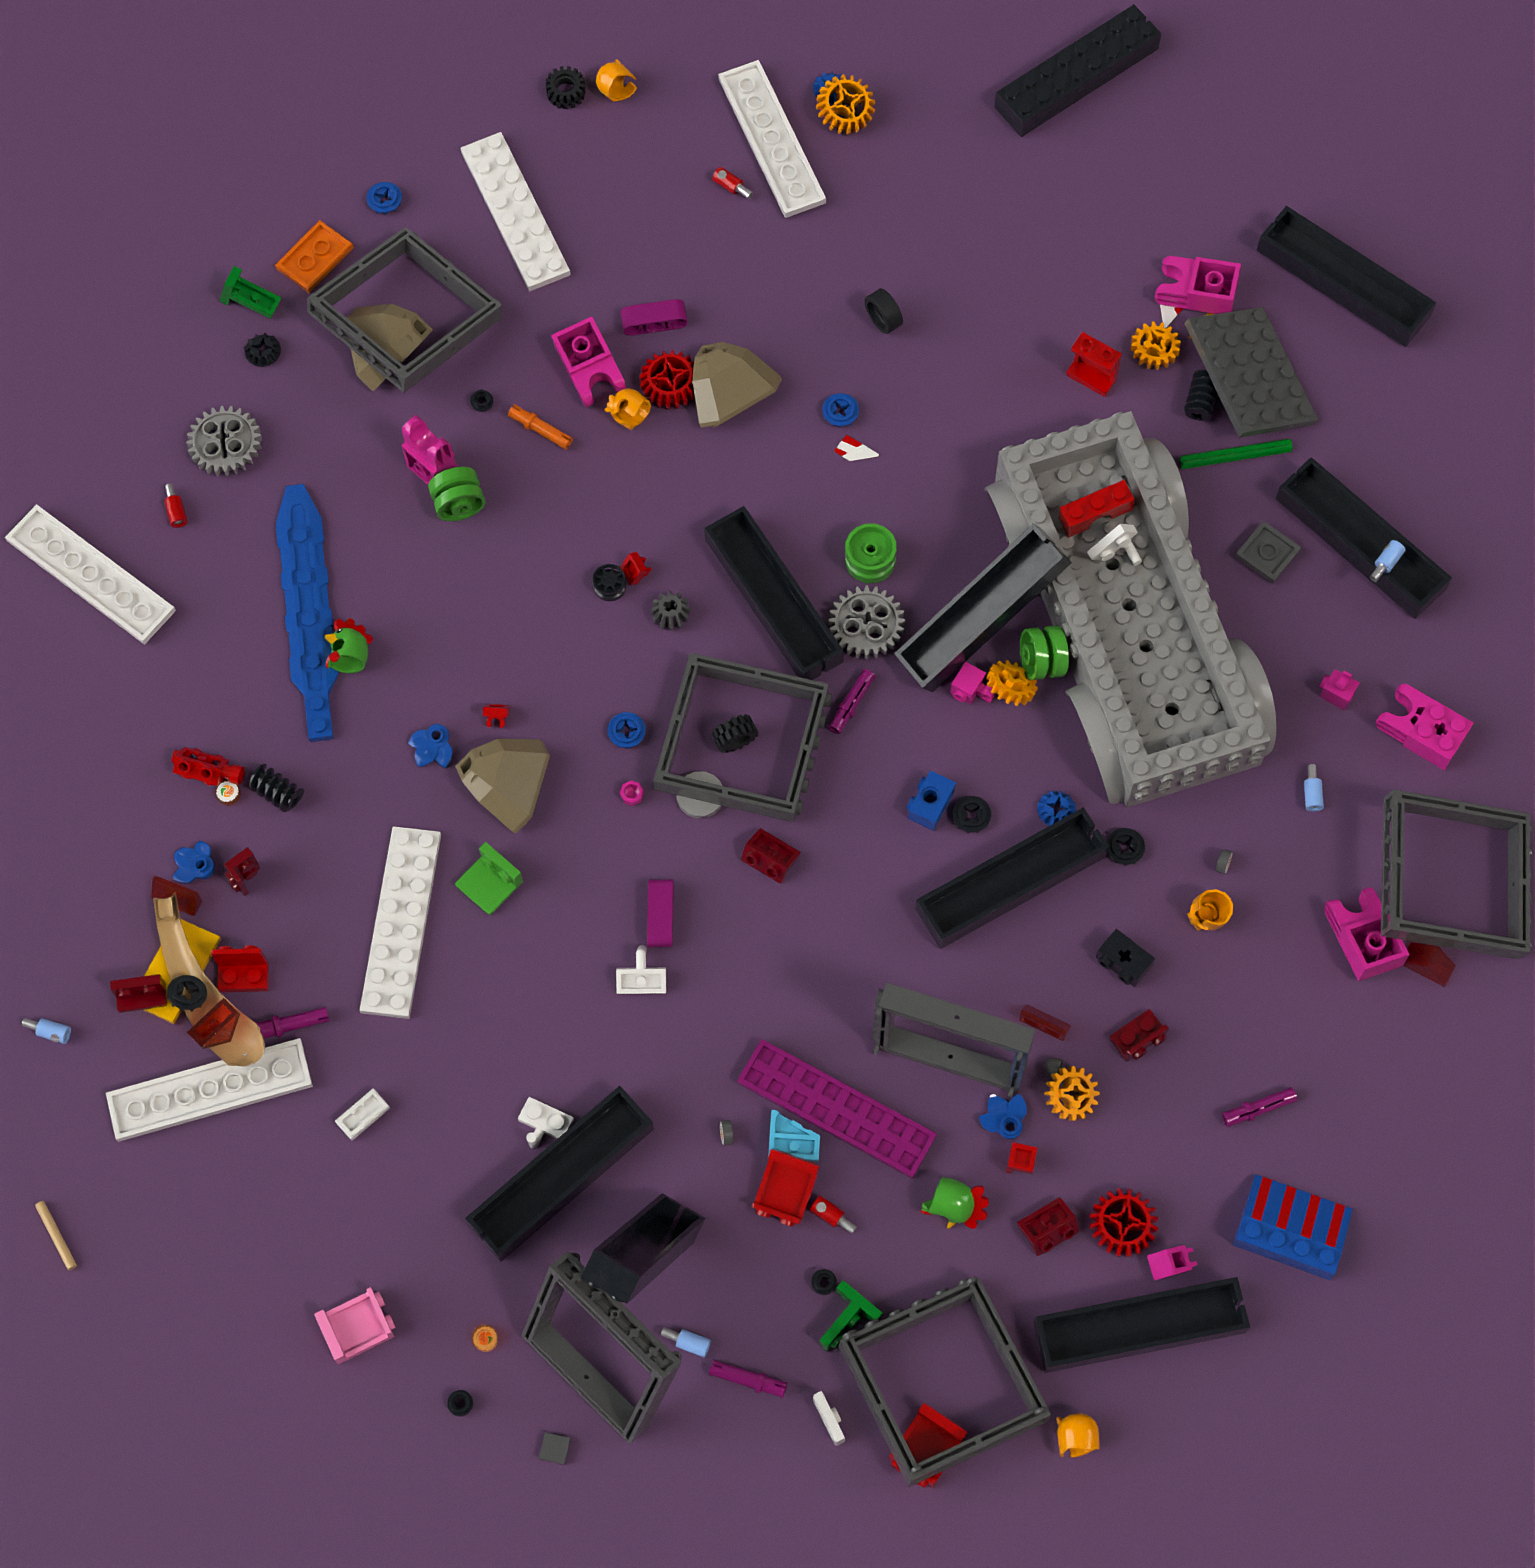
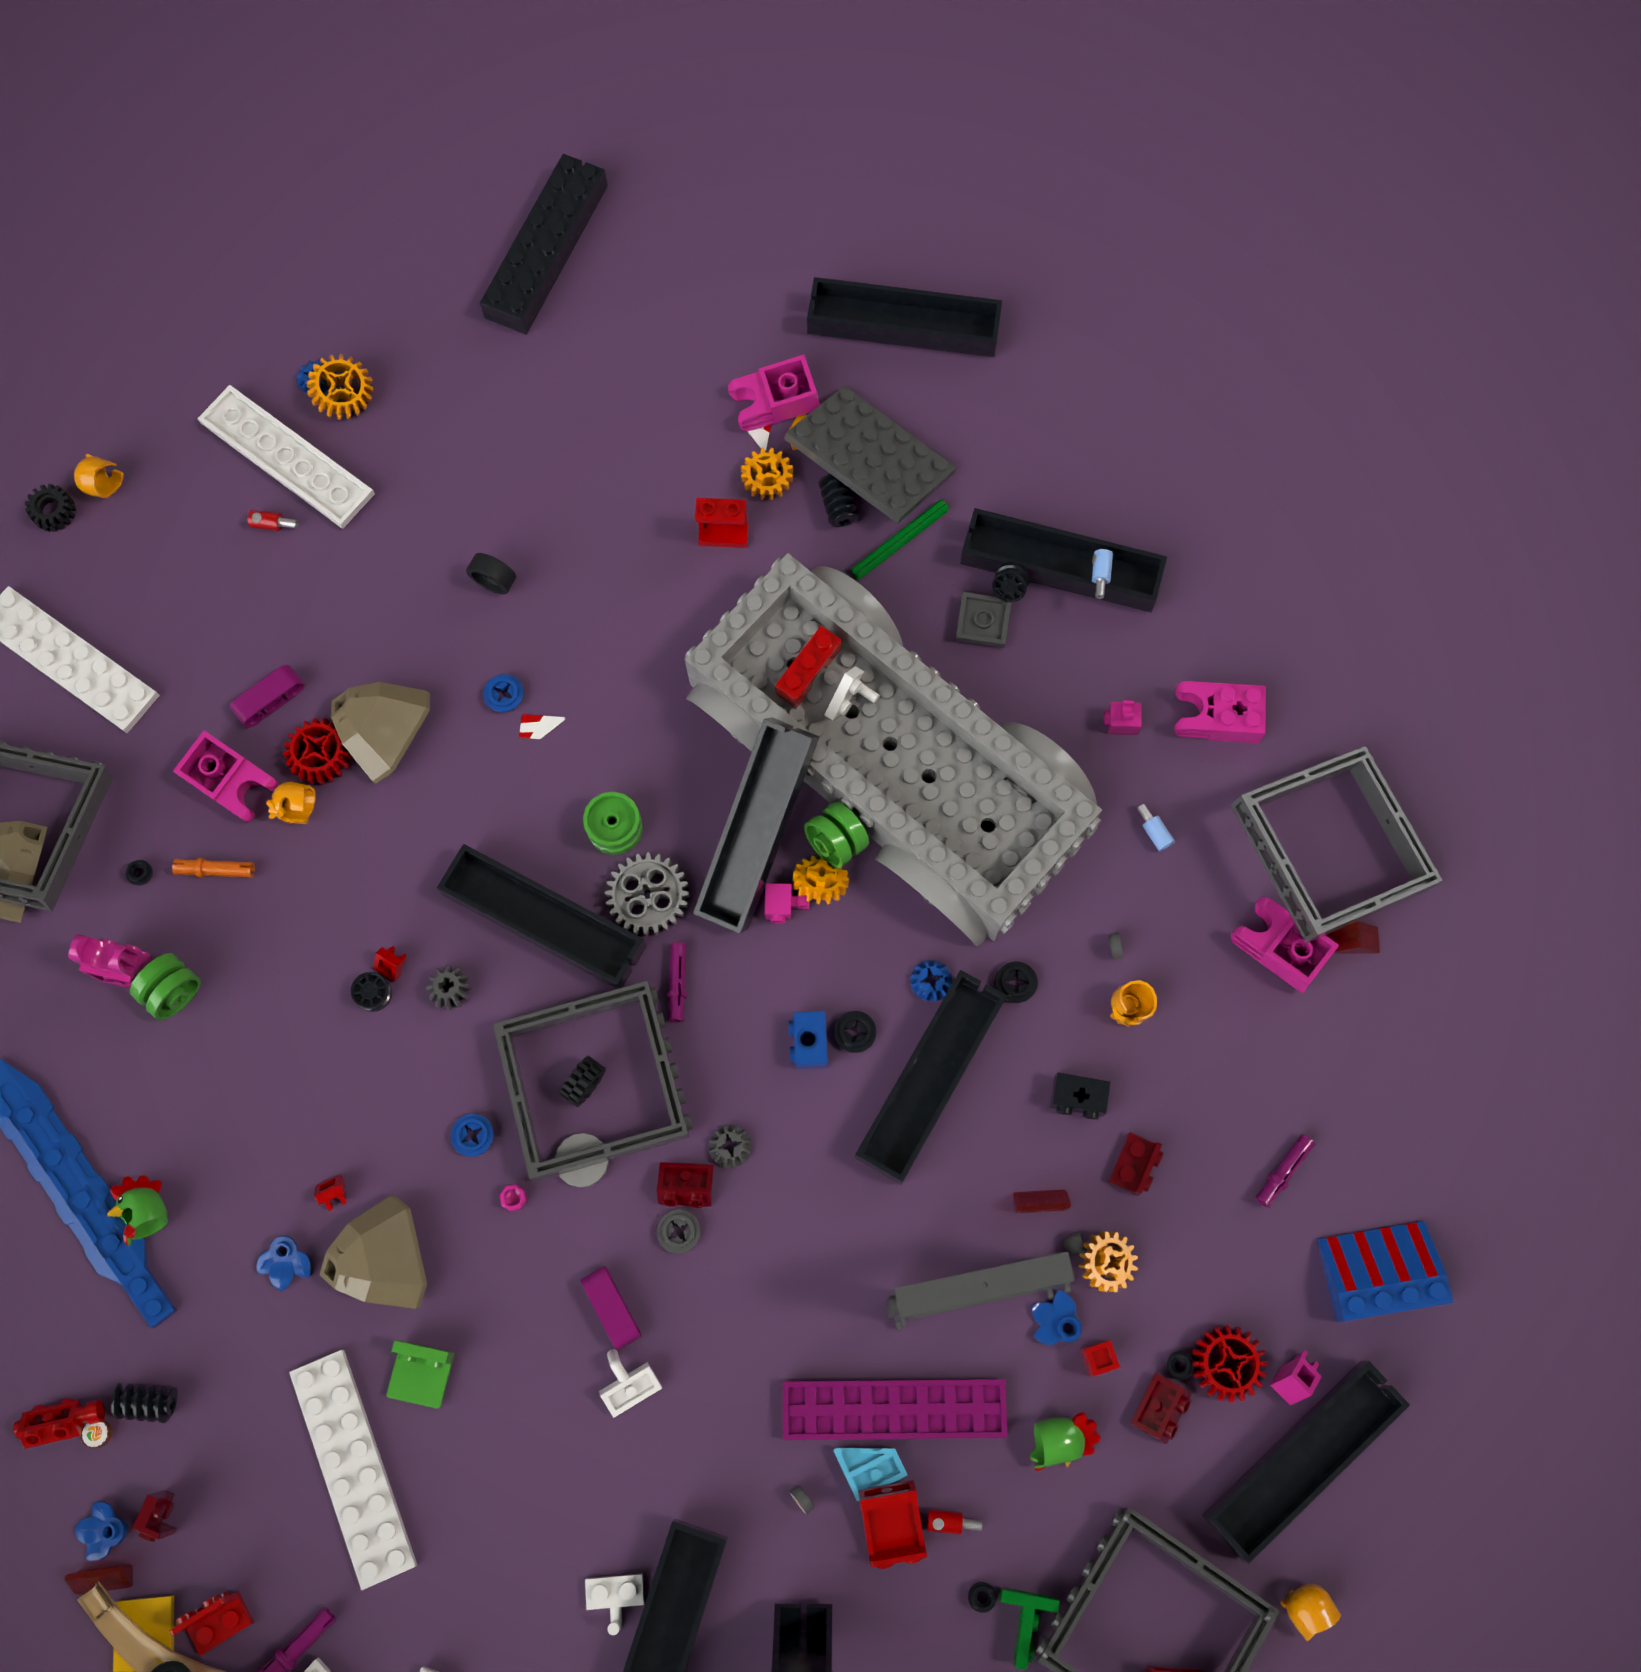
camera: 30 degrees left, 5 degrees up
(752, 879) = (680, 1218): none -> dark grey gear
(828, 854) = (741, 1152): none -> dark grey gear
(1081, 1197) = (1172, 1365): none -> black plate
(1308, 531) = (1011, 582): none -> black wheel

